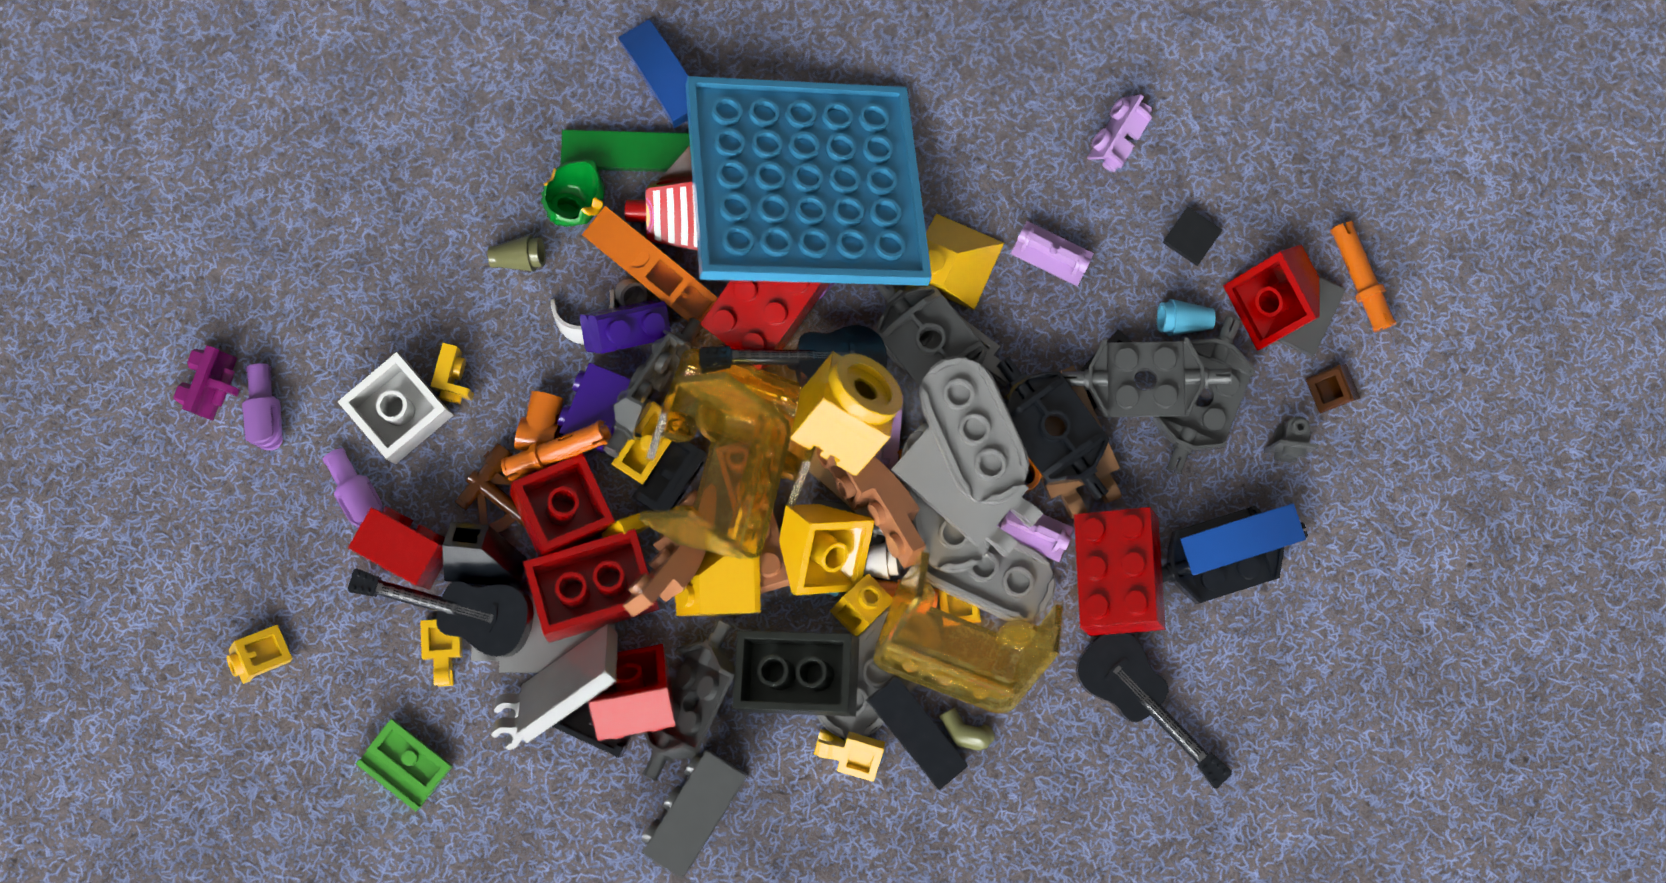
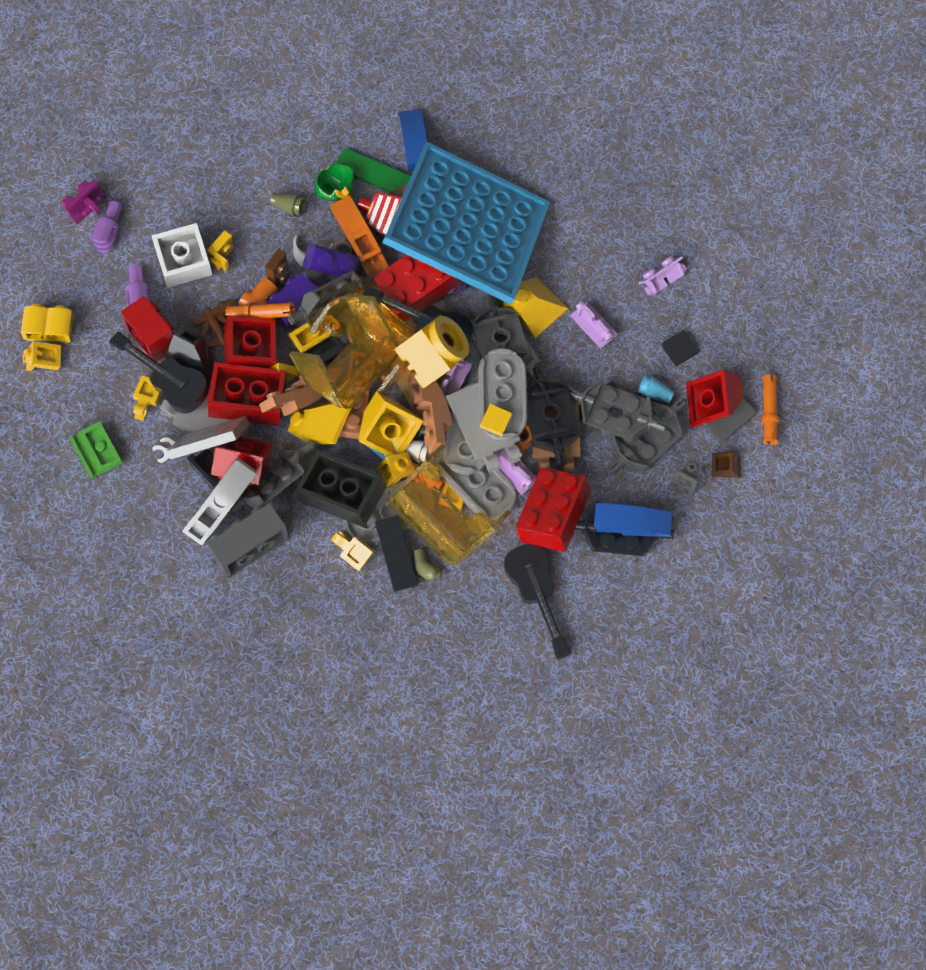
camera: 20 degrees right, 10 degrees down
(241, 600) = (47, 323): none -> yellow brick
(551, 370) = (277, 268): none -> reddish brown plate
(630, 775) = (219, 501): none -> light grey slope
(985, 479) = (495, 420): none -> yellow tile

